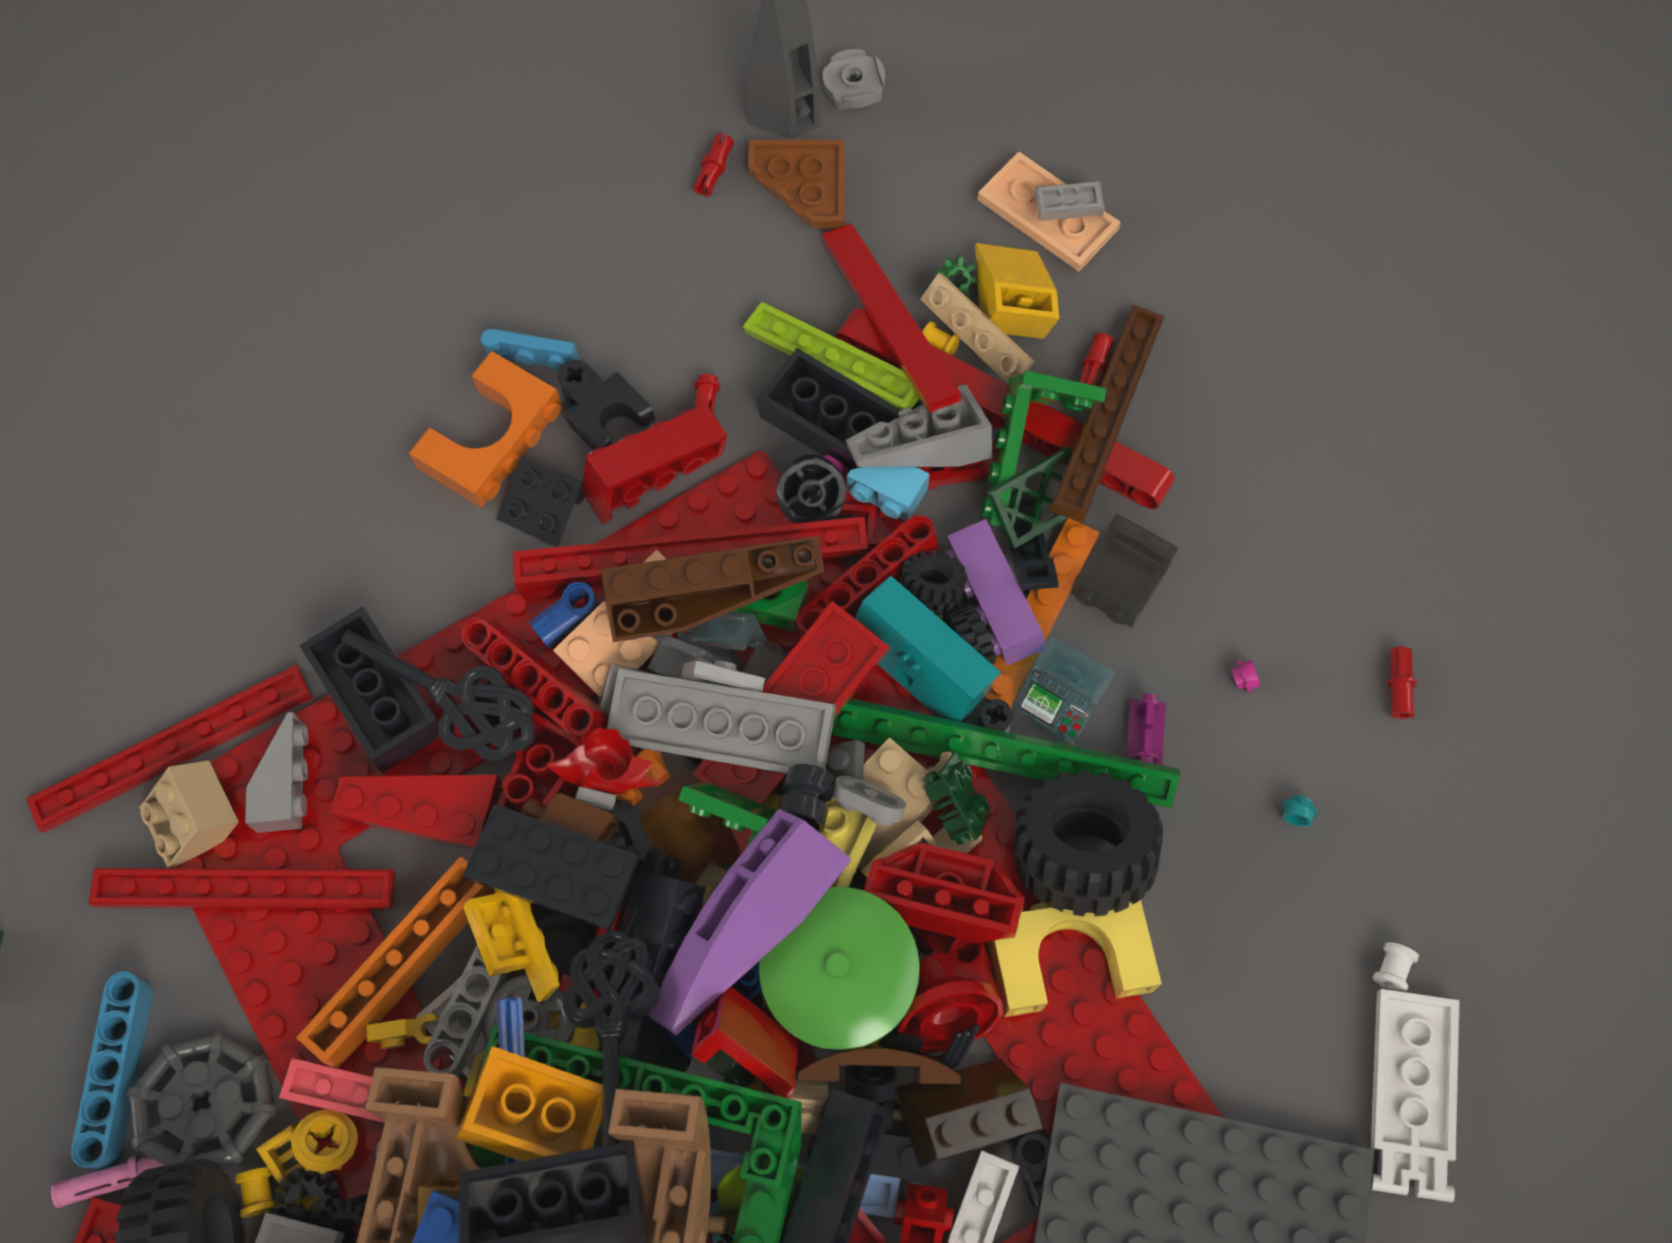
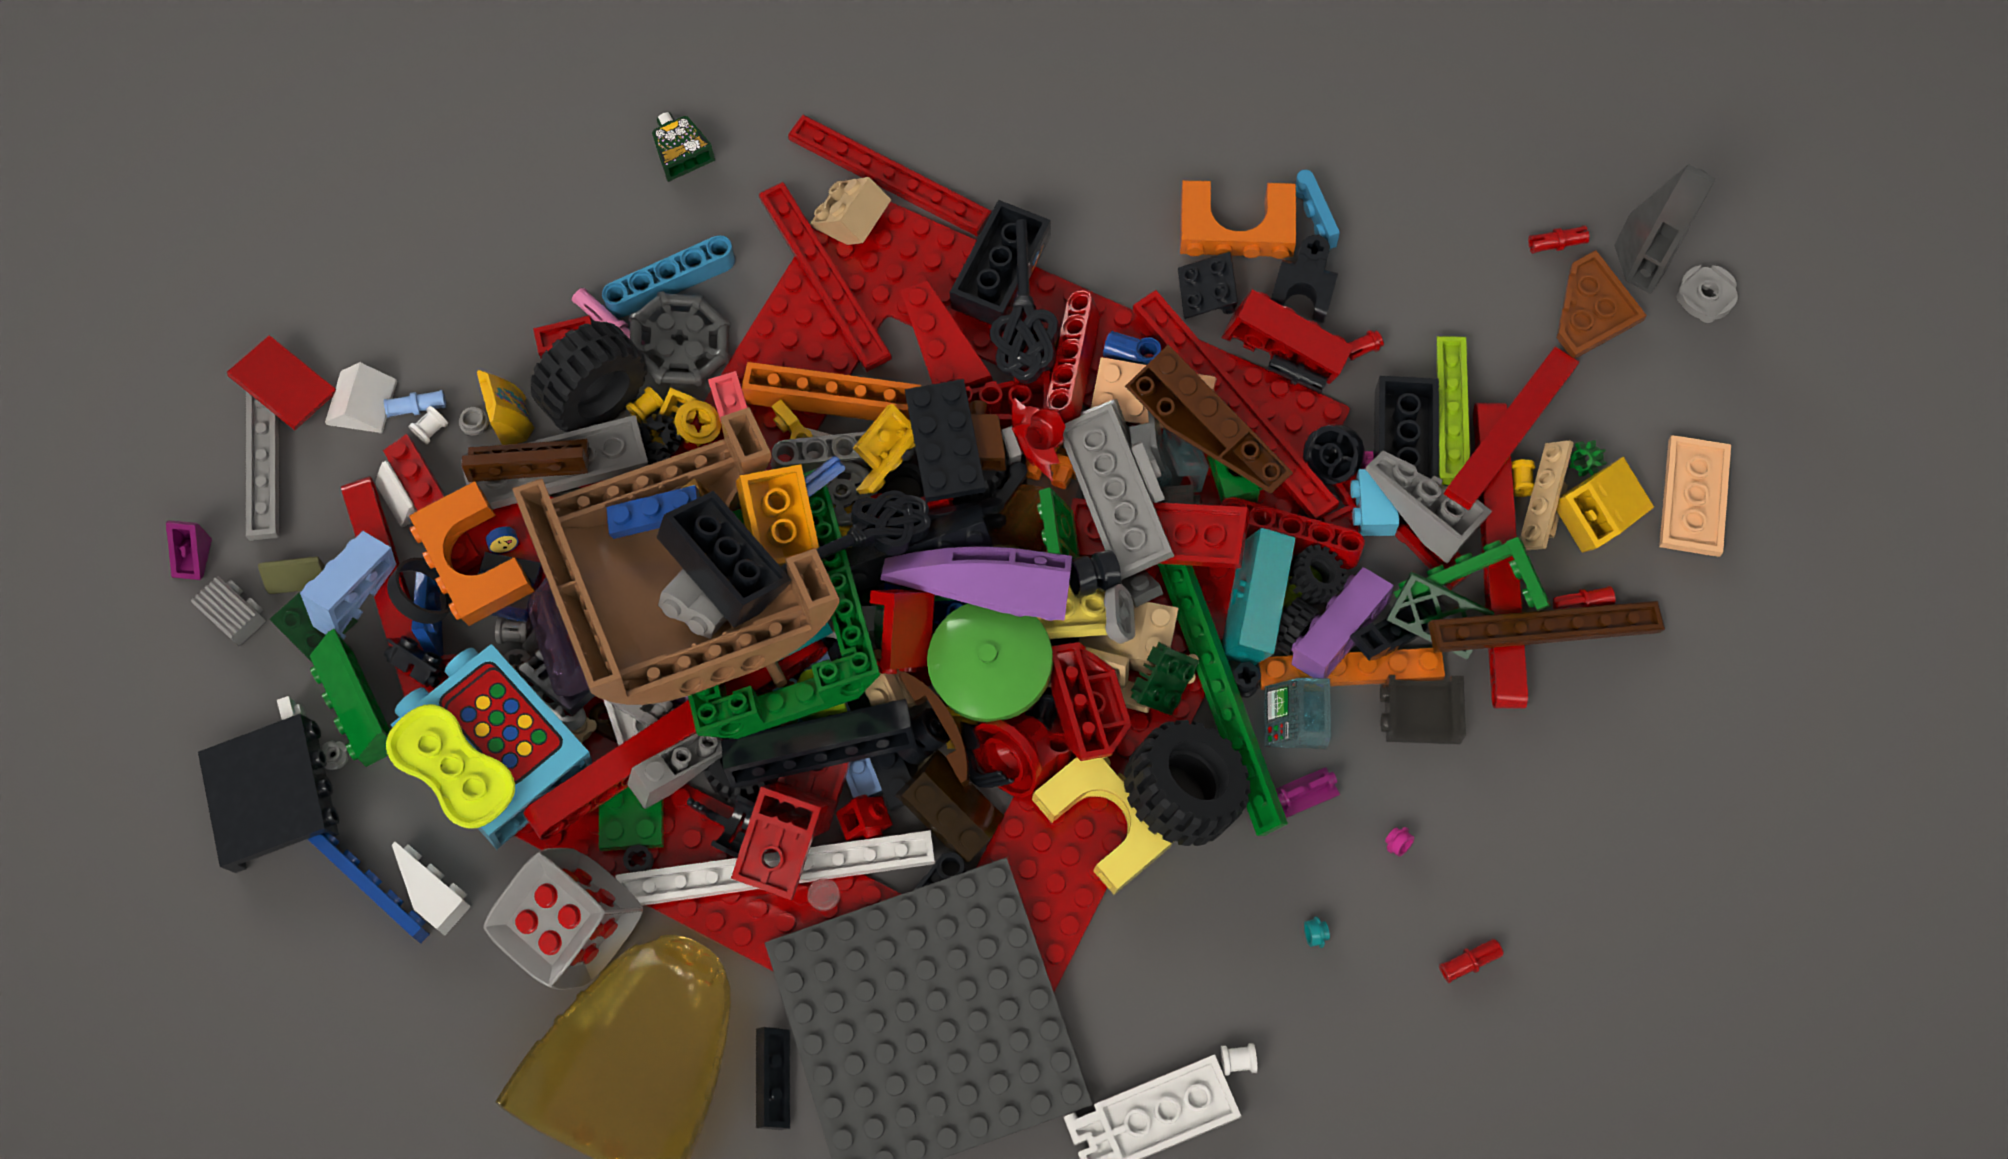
camera: 60 degrees right, 0 degrees up
(276, 786) = (903, 249): light grey slope -> none
(696, 474) = (1297, 373): none -> black pin
(1069, 201) = (1709, 502): light grey plate -> none

